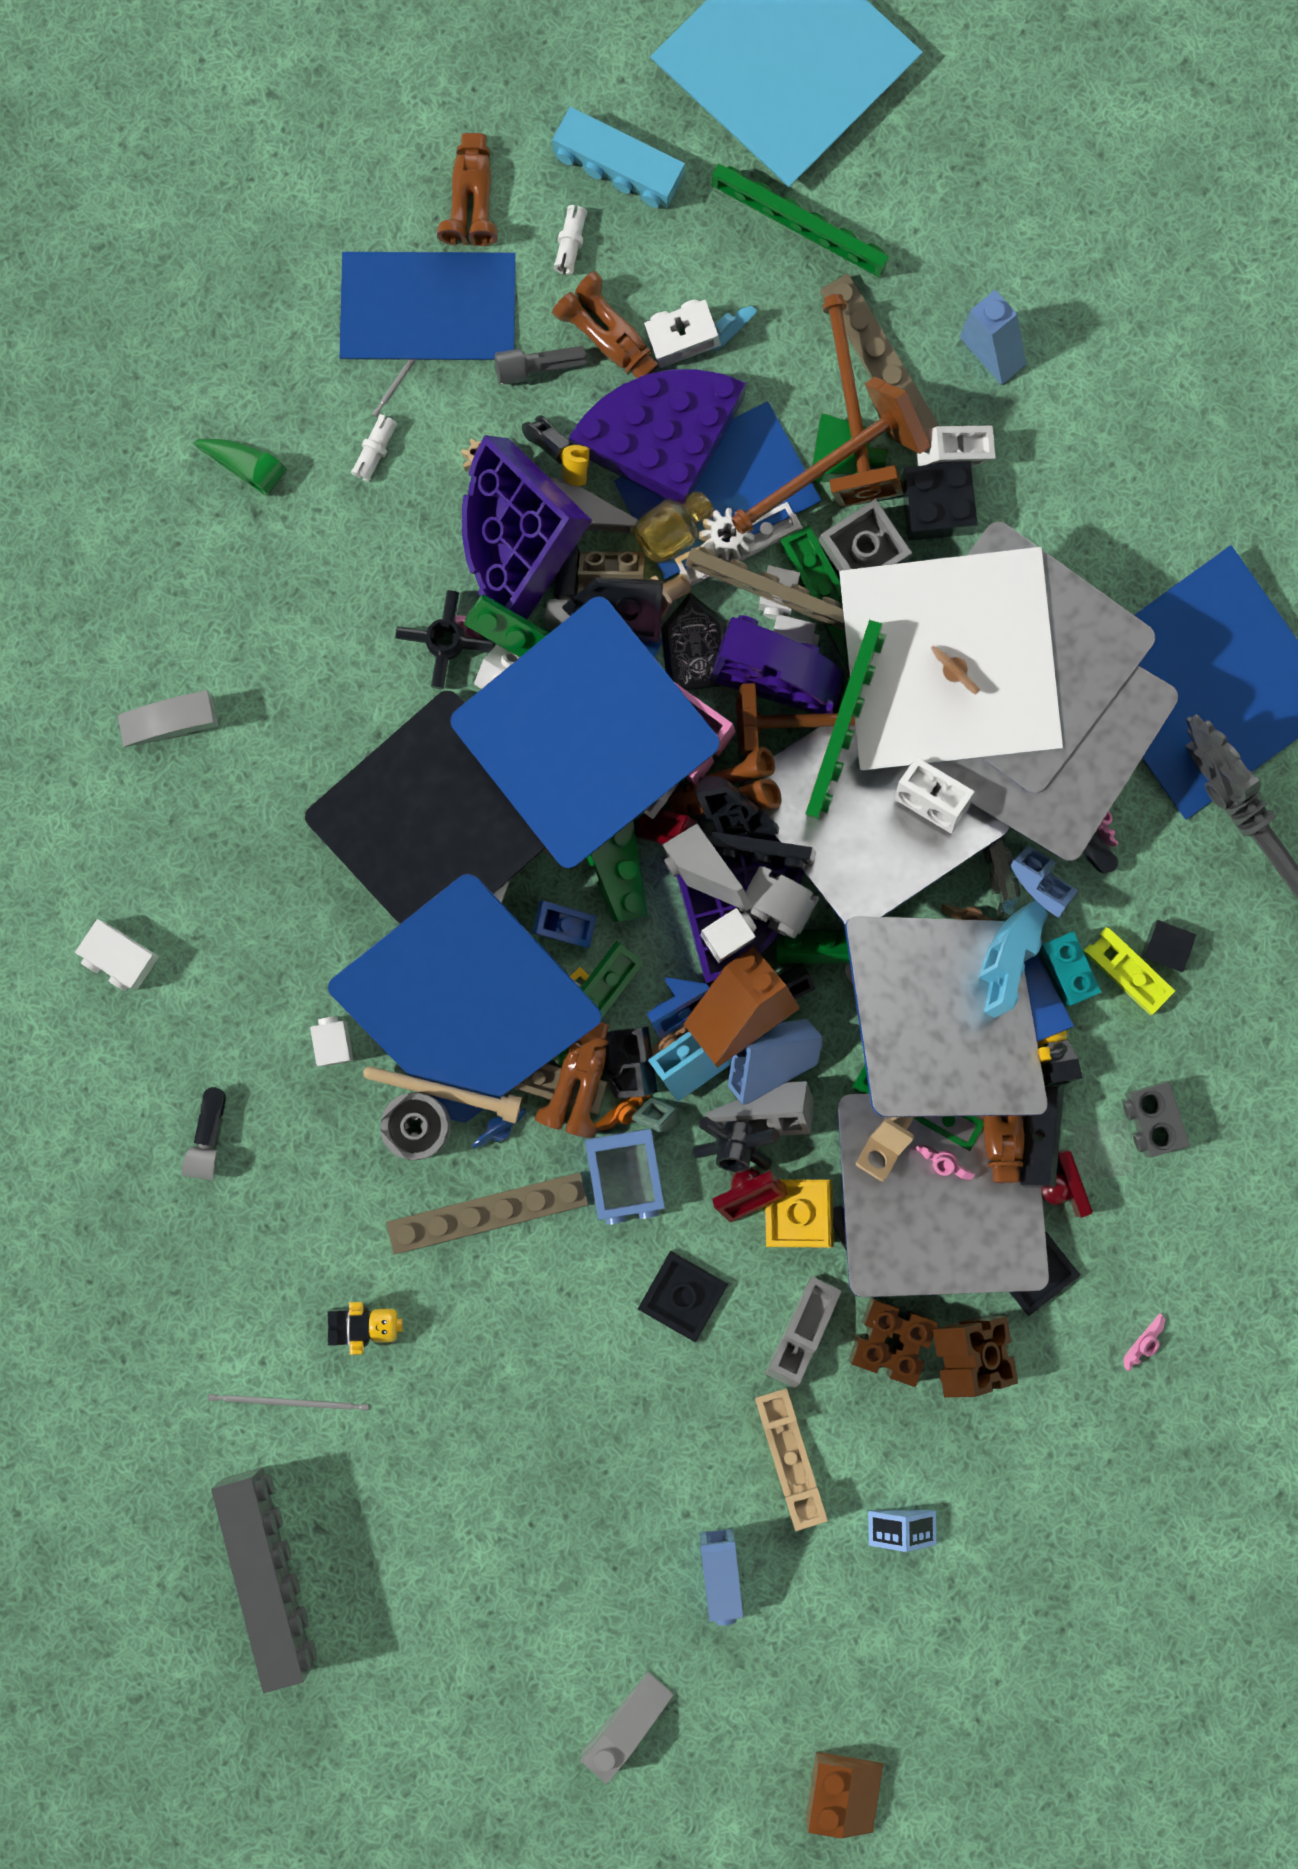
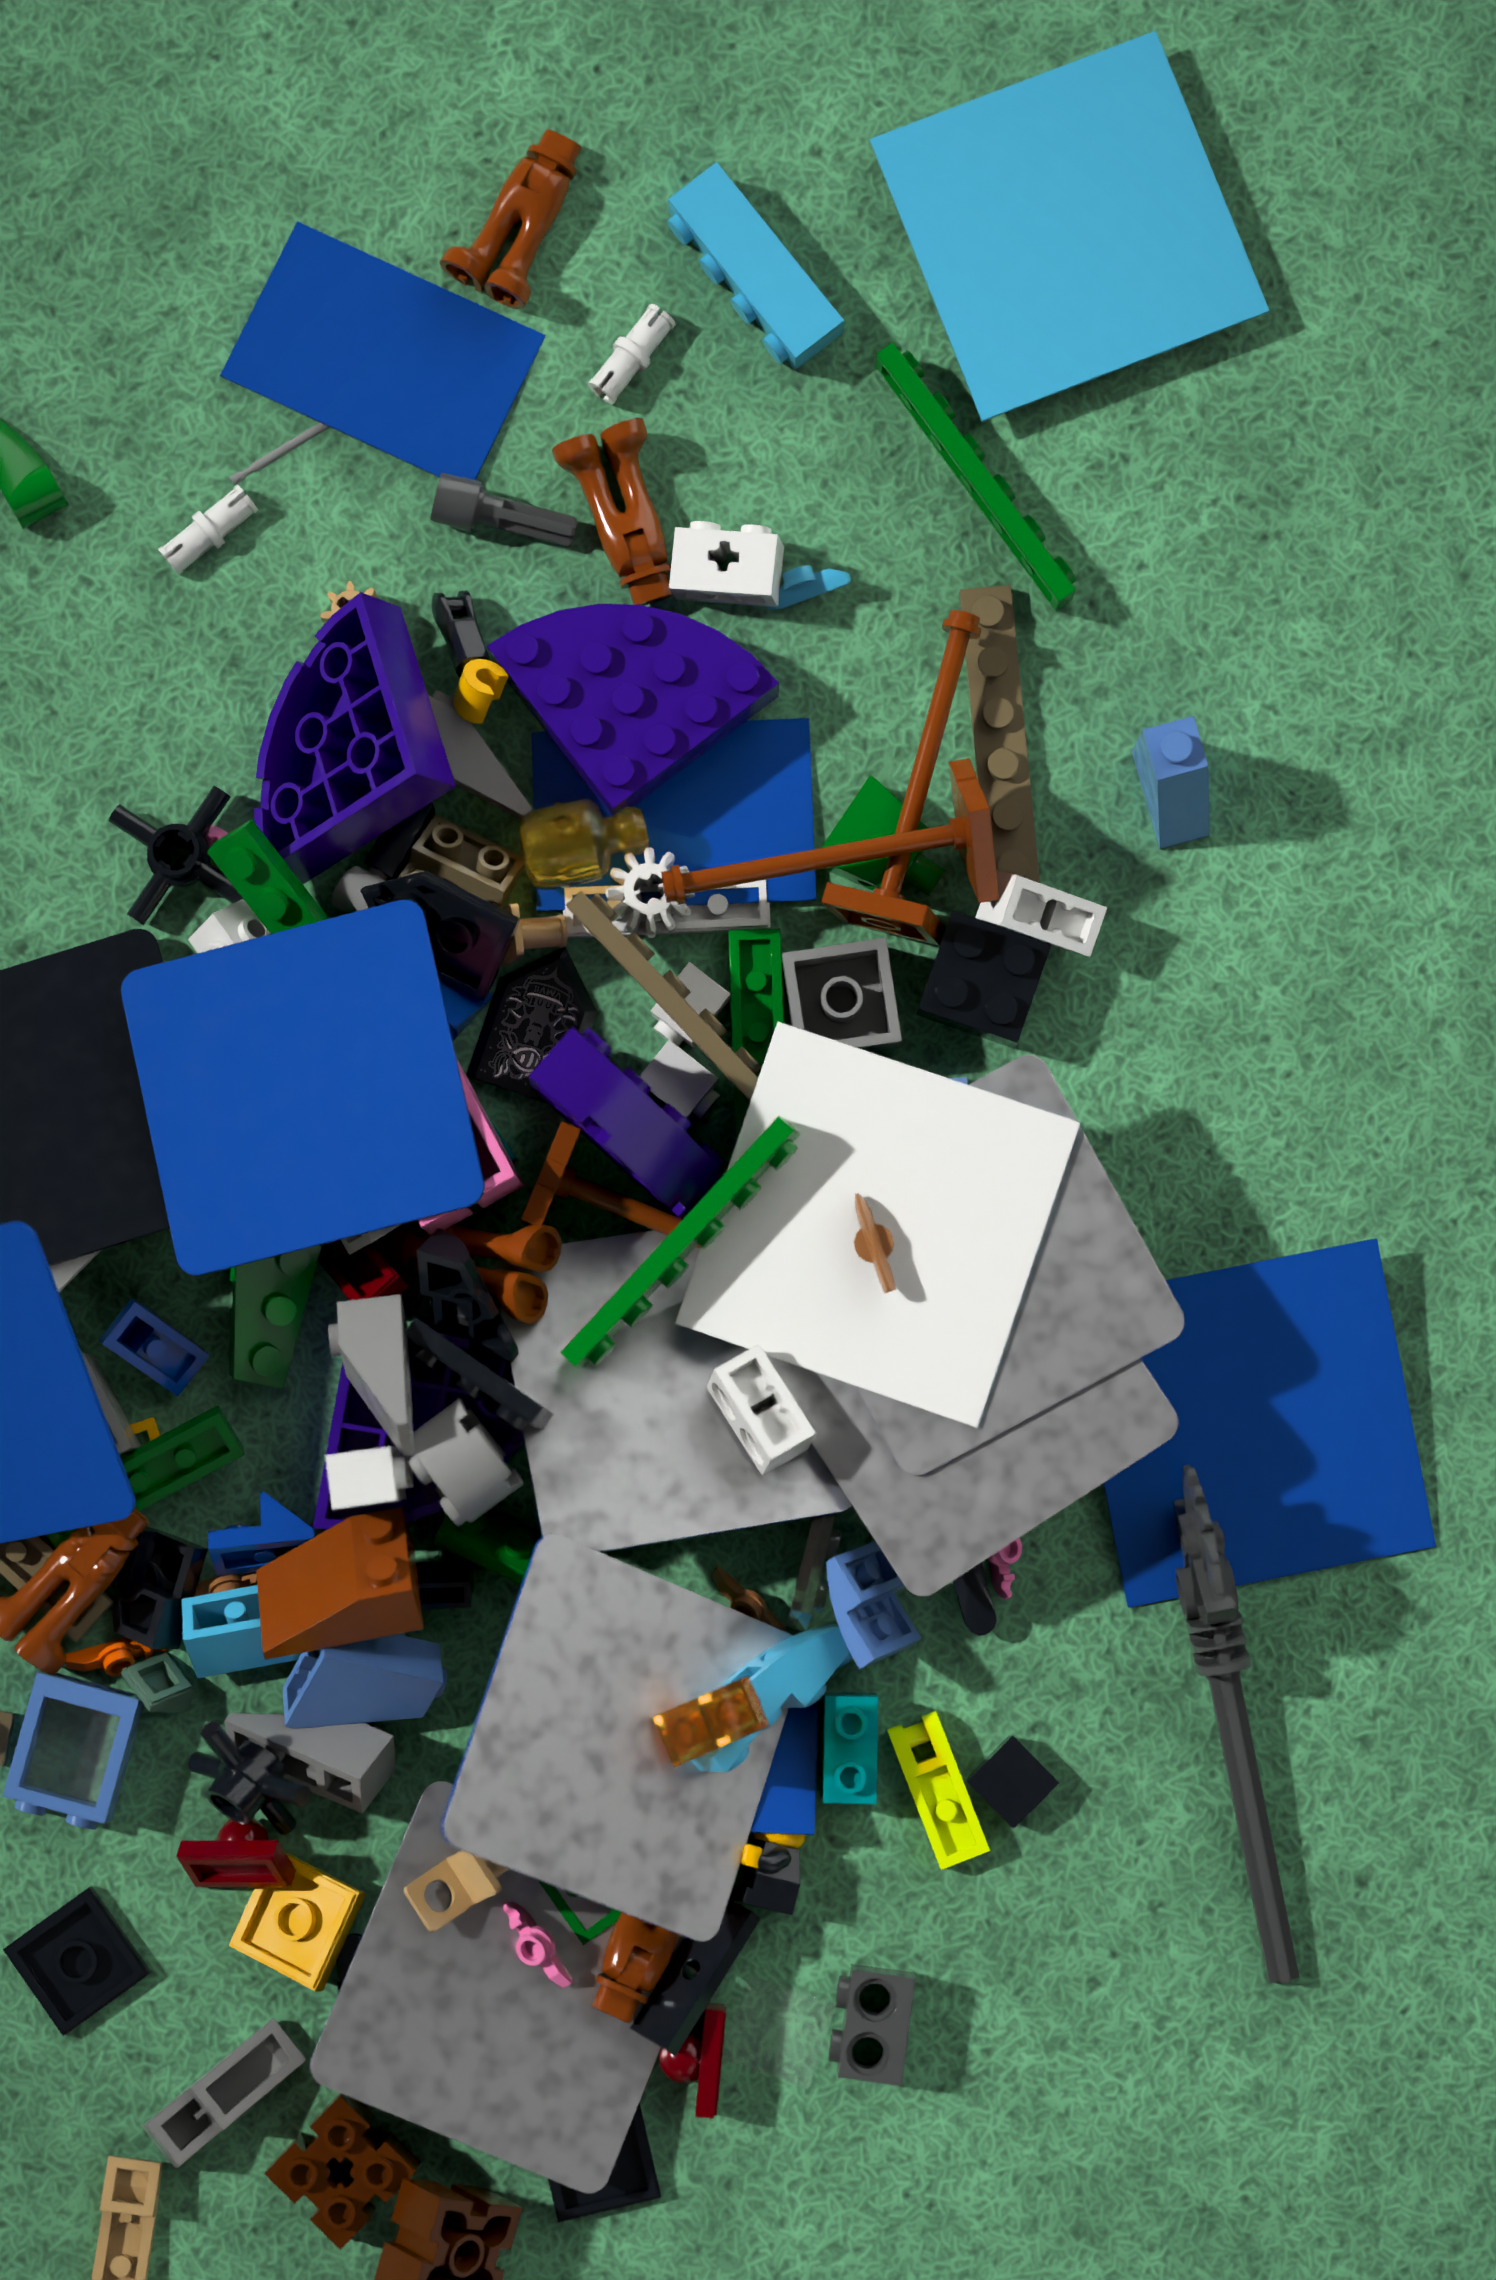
camera: 25 degrees right, 0 degrees up
(991, 982) = (711, 1721): none -> clear orange slope

